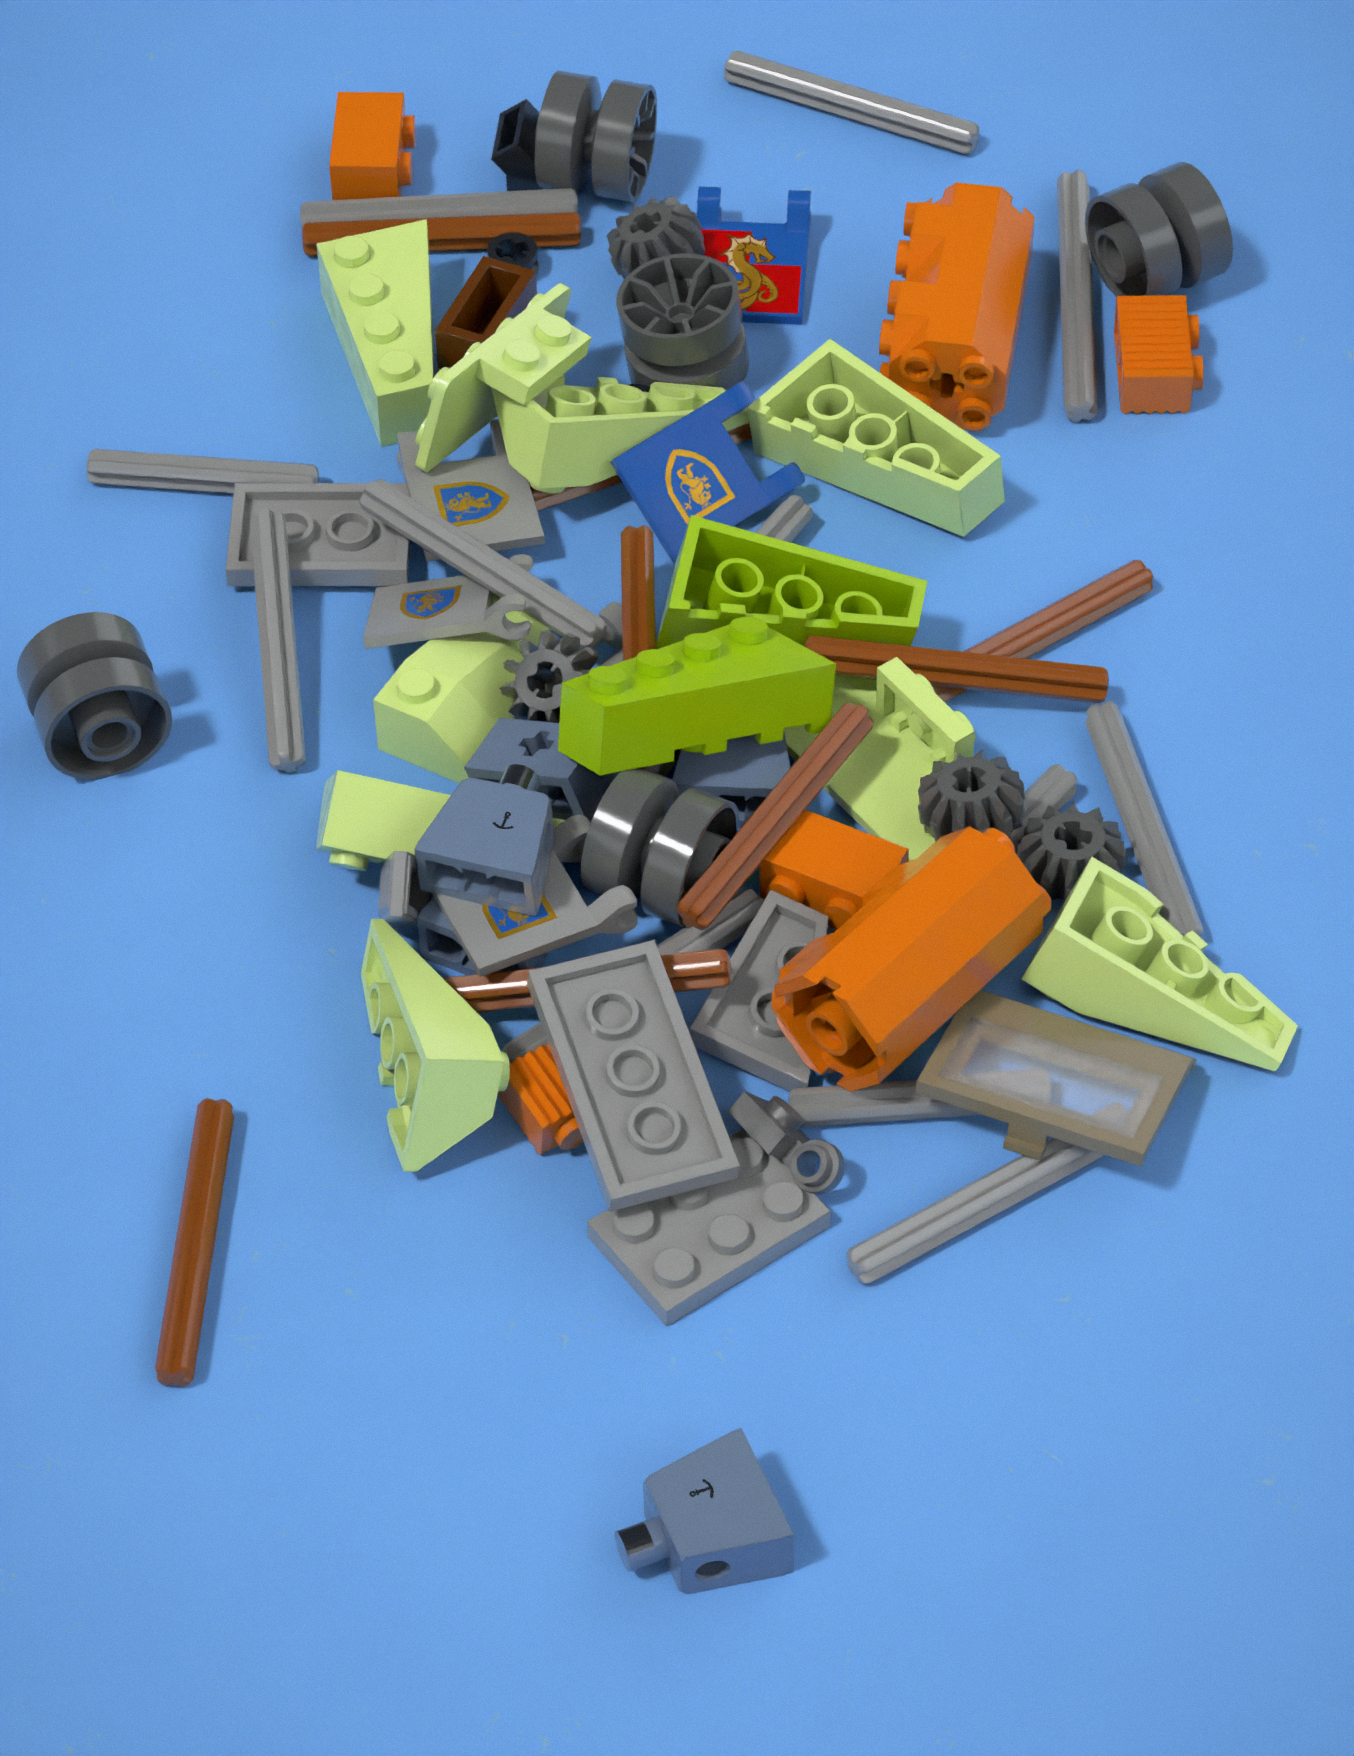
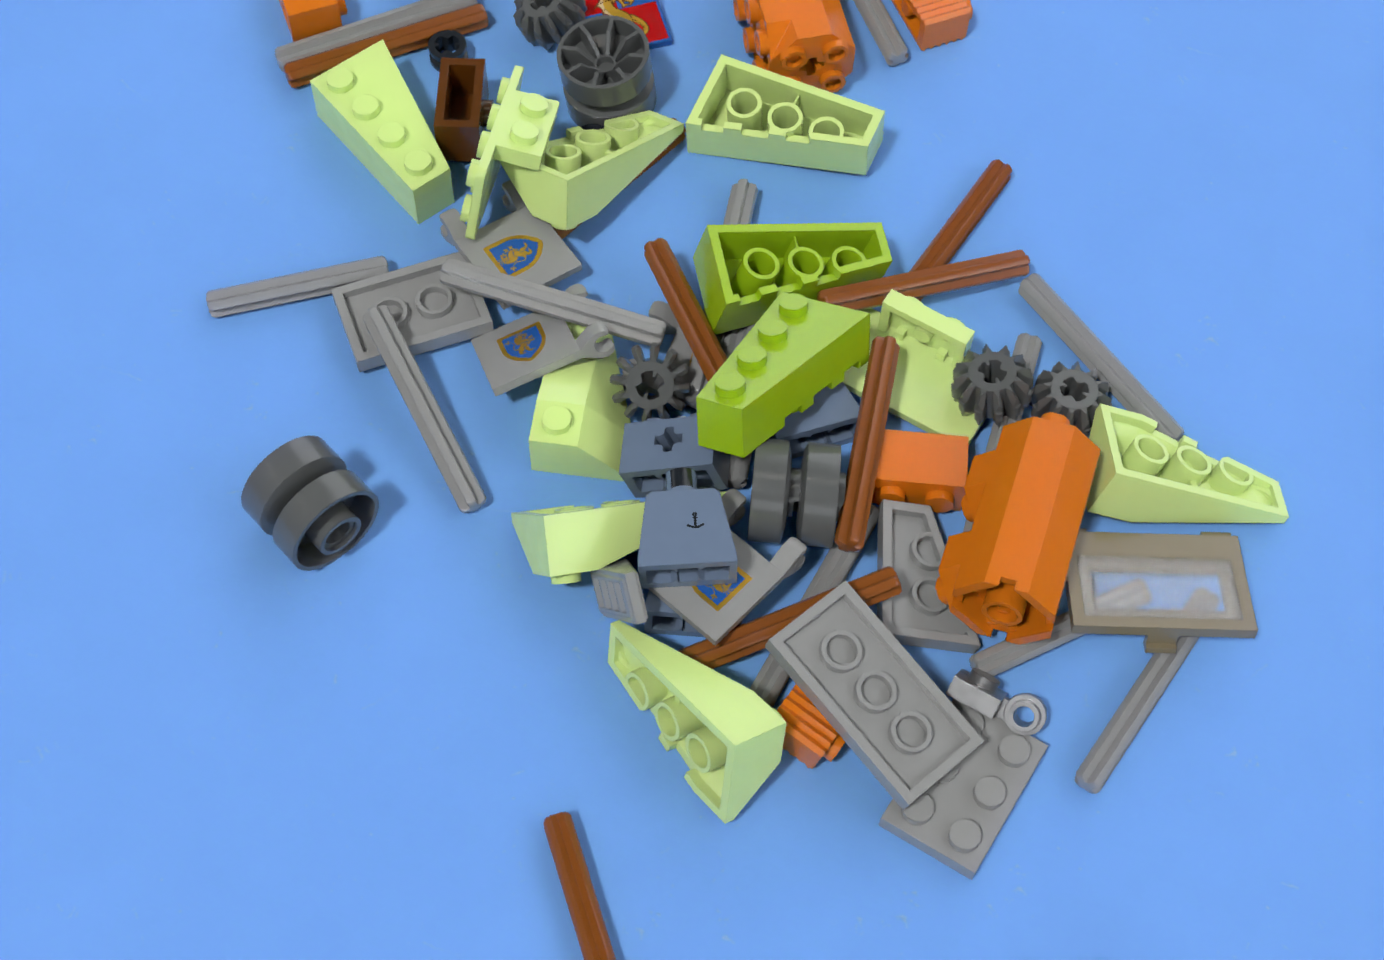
camera: 25 degrees left, 10 degrees up
(699, 472) = (668, 187): blue flag -> none

